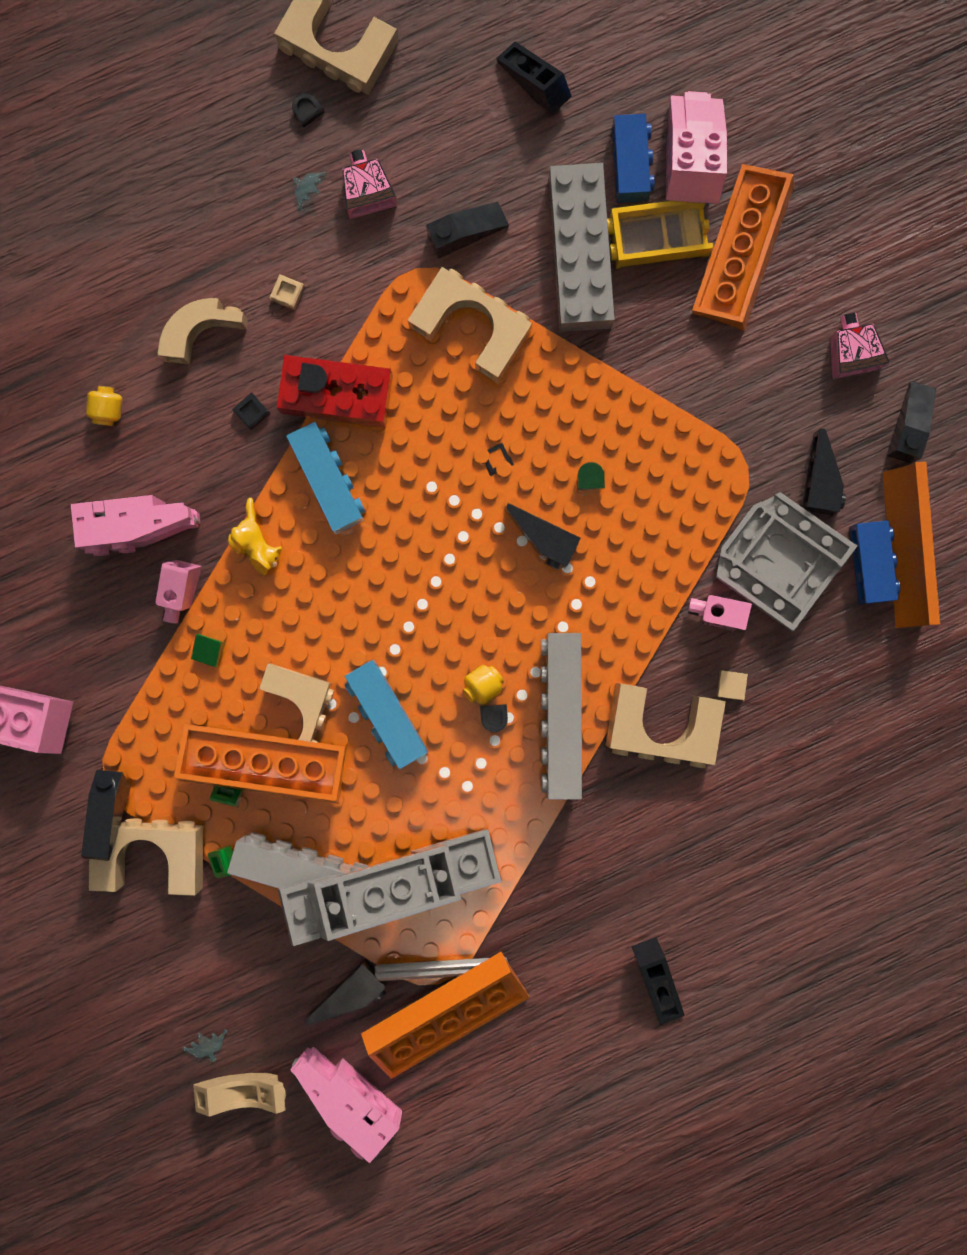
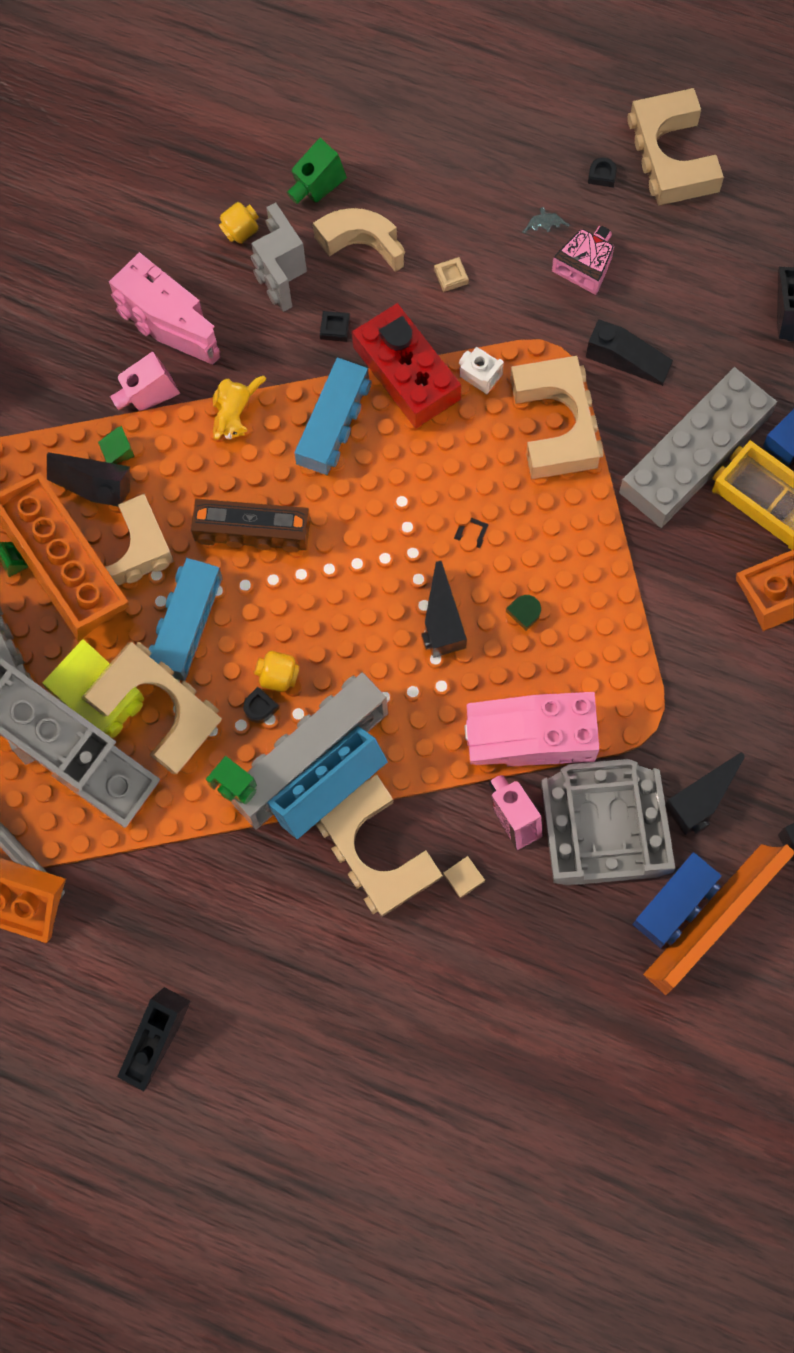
camera: 50 degrees right, 15 degrees down
(116, 306) = (316, 173): none -> green torso
(163, 404) = (278, 257): none -> light grey bracket
(219, 690) = (89, 478): none -> black slope
(356, 607) = (250, 525): none -> reddish brown brick
(387, 823) = (76, 675): none -> neon yellow slope
(393, 347) = (481, 376): none -> white brick
(401, 787) = (193, 717): none -> tan arch
(551, 791) = (232, 781): none -> green brick
(601, 723) = (327, 782): none -> dark azure brick
(683, 551) = (533, 730): none -> bright pink piece

